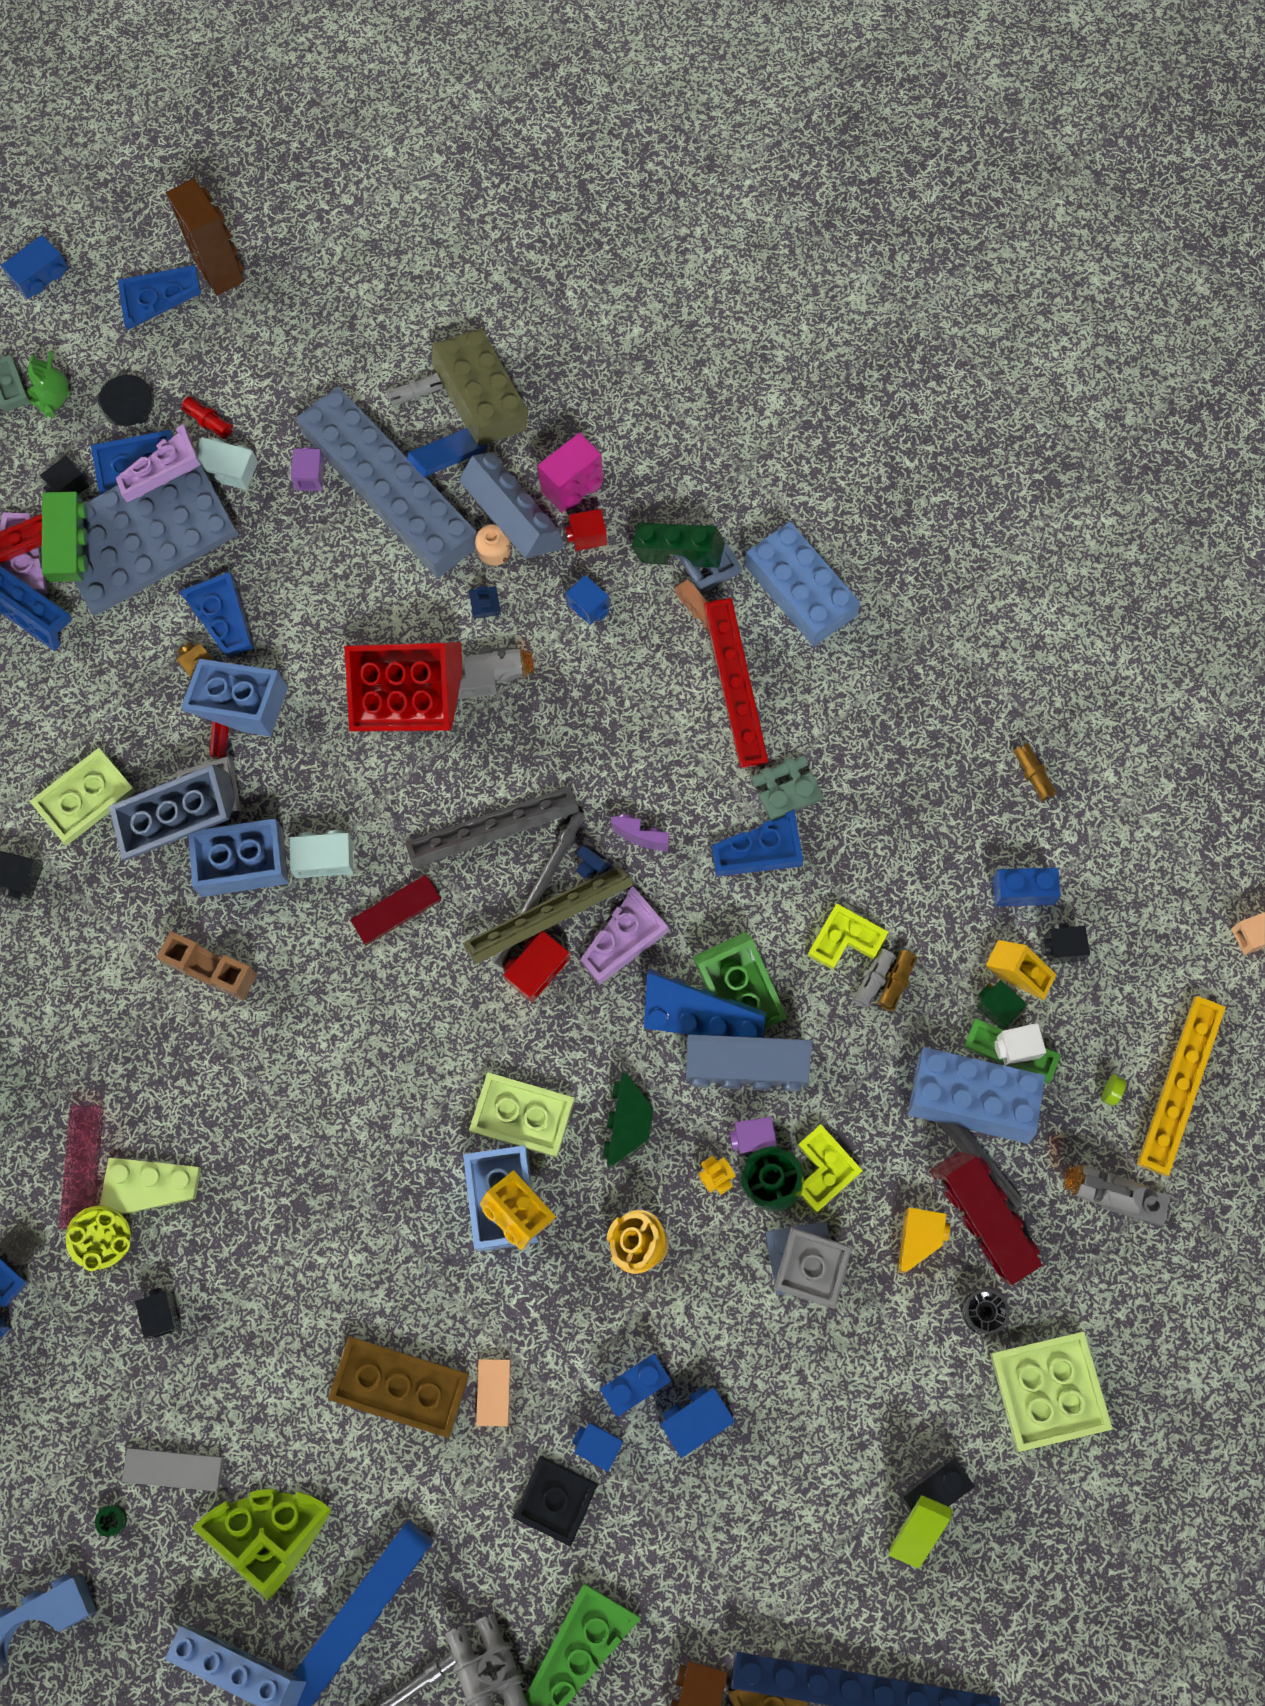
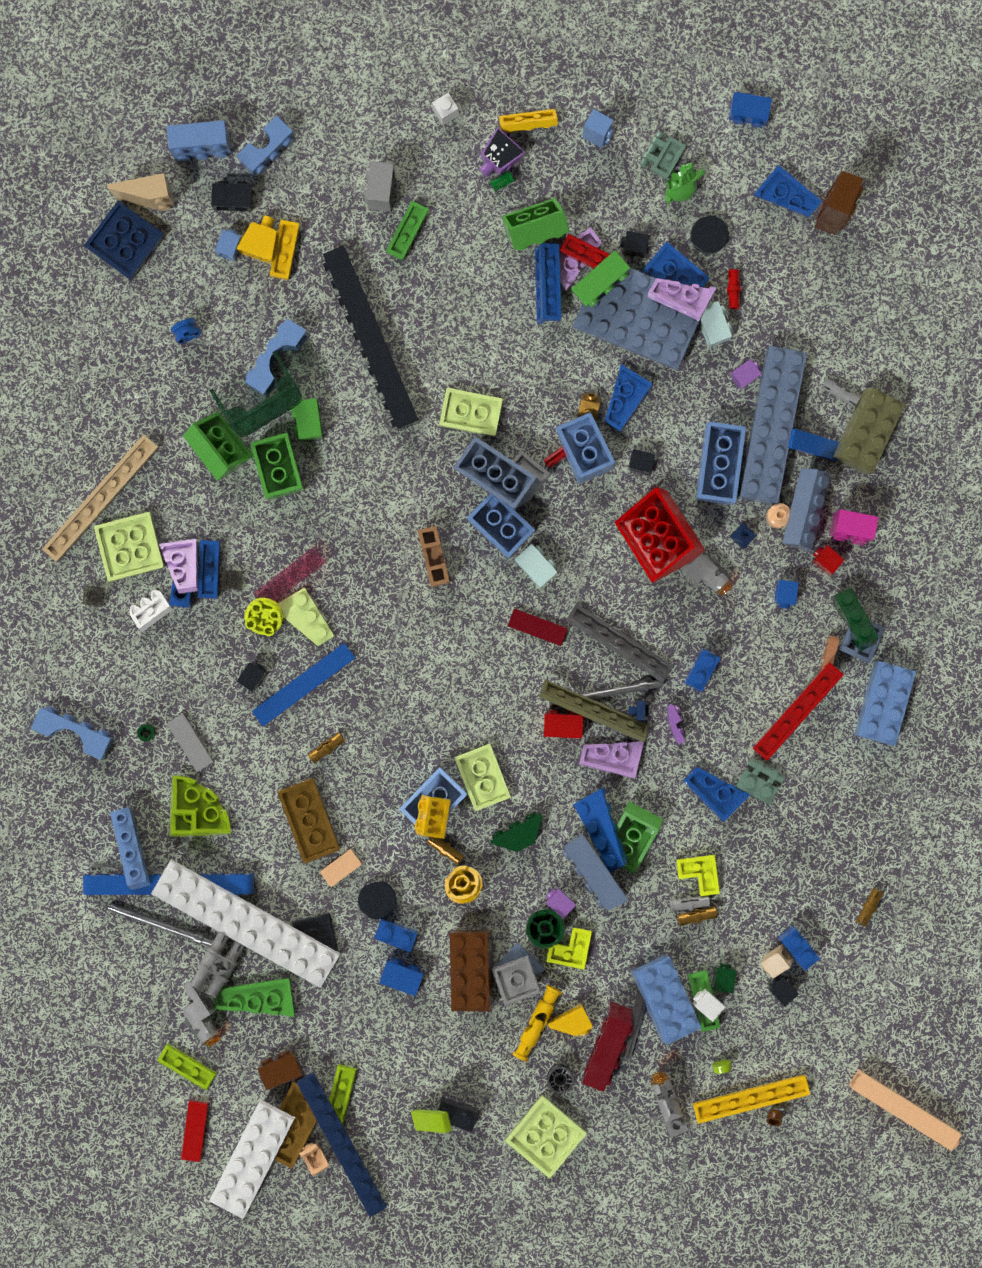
camera: 50 degrees right, 15 degrees up
(225, 1257) = (303, 684): none -> blue tile
(307, 647) = (642, 462): none -> black brick
(326, 1288) = (326, 747): none -> pearl gold pin
(381, 563) = (720, 463): none -> medium blue brick
(460, 1587) = (245, 923): none -> white plate
(571, 1375) = (377, 899): none -> black tile
(575, 1233) = (445, 849): none -> pearl gold pin
(597, 1445) = (354, 937): blue brick -> none
(601, 756) = (701, 670): none -> blue brick
(716, 1175) = (526, 898): yellow gear -> none
(757, 1319) = (471, 970): none -> reddish brown brick
(790, 1630) = (342, 1089): none -> lime tile
(896, 1300) = (532, 1032): none -> yellow piece
(1021, 968) = (751, 975): yellow slope -> none
(1025, 923) = (777, 961): none -> tan brick
(1227, 1074) = (774, 1118): none -> reddish brown hinge

